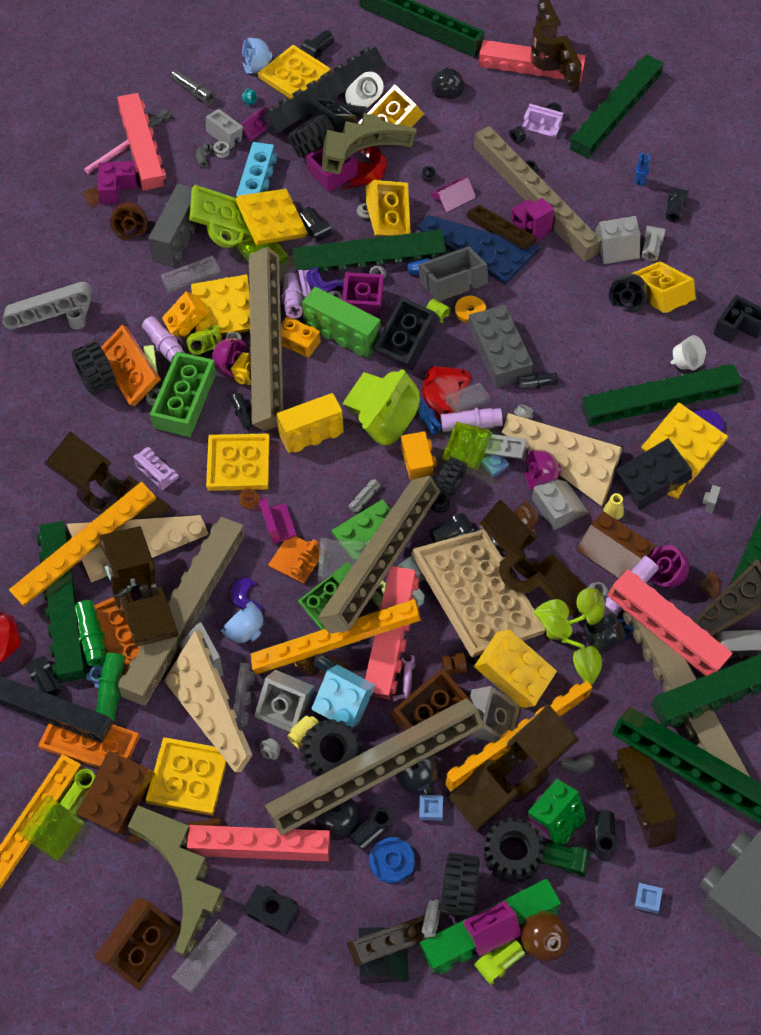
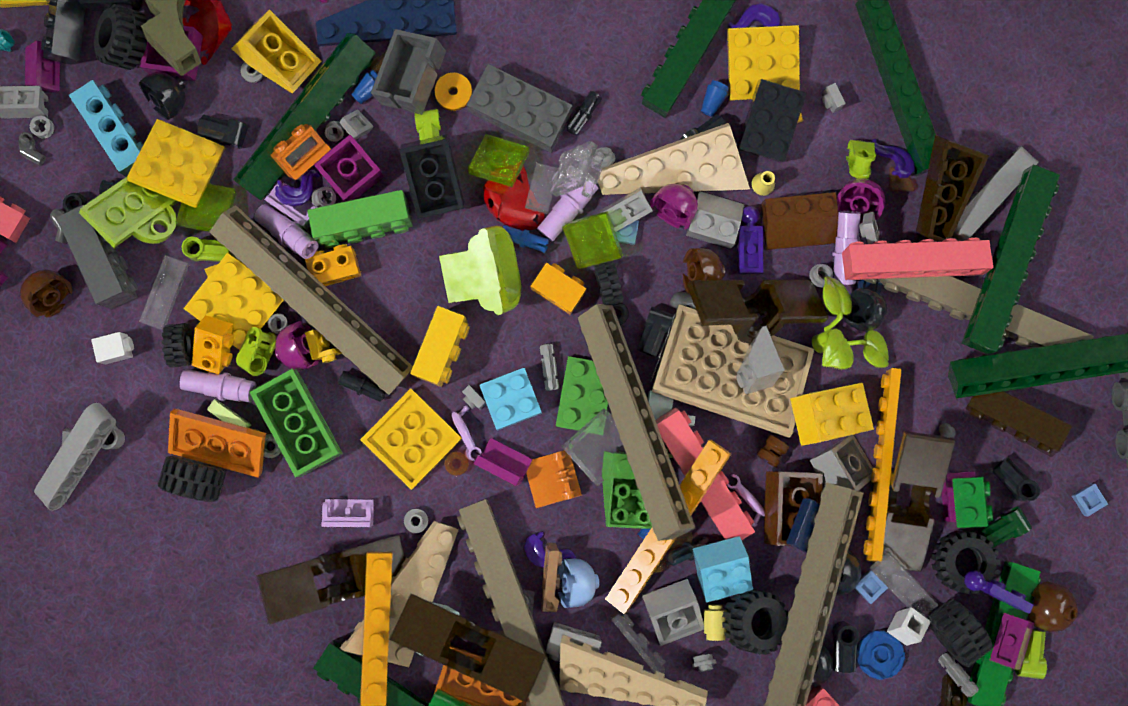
camera: 50 degrees left, 25 degrees up
(130, 275) = (112, 348): none -> white brick
(164, 299) = (177, 345): none -> black tyre
(192, 511) = (423, 520): none -> light grey plate
(231, 607) = (551, 579): none -> medium nougat hinge
(233, 267) = (209, 249): none -> lime piece
(272, 485) = (464, 432): none -> lavender piece
(298, 471) = (473, 398): none -> light grey plate
(305, 180) = (164, 92): none -> black cylinder
(320, 489) = (510, 399): none -> medium azure brick
(345, 260) = (300, 151): none -> orange window
(393, 279) = (356, 124): none -> light grey plate
(417, 715) = (803, 525): none -> dark blue slope
(429, 851) = (908, 626): none -> white brick
(454, 822) = (903, 585): none -> clear plate
(457, 360) = (498, 160): none -> clear neon green plate
(493, 589) = (760, 365): none -> light grey slope
(501, 398) = (576, 168): none -> clear plate
(513, 873) = (975, 581): none -> dark purple plate
(568, 535) = (750, 243): none -> dark purple plate
(631, 437) = (714, 97): none -> blue cone
(657, 581) = (869, 228): none -> light grey plate
(695, 545) = (860, 158): none -> lime piece
(725, 572) = (903, 161): none -> dark purple piece

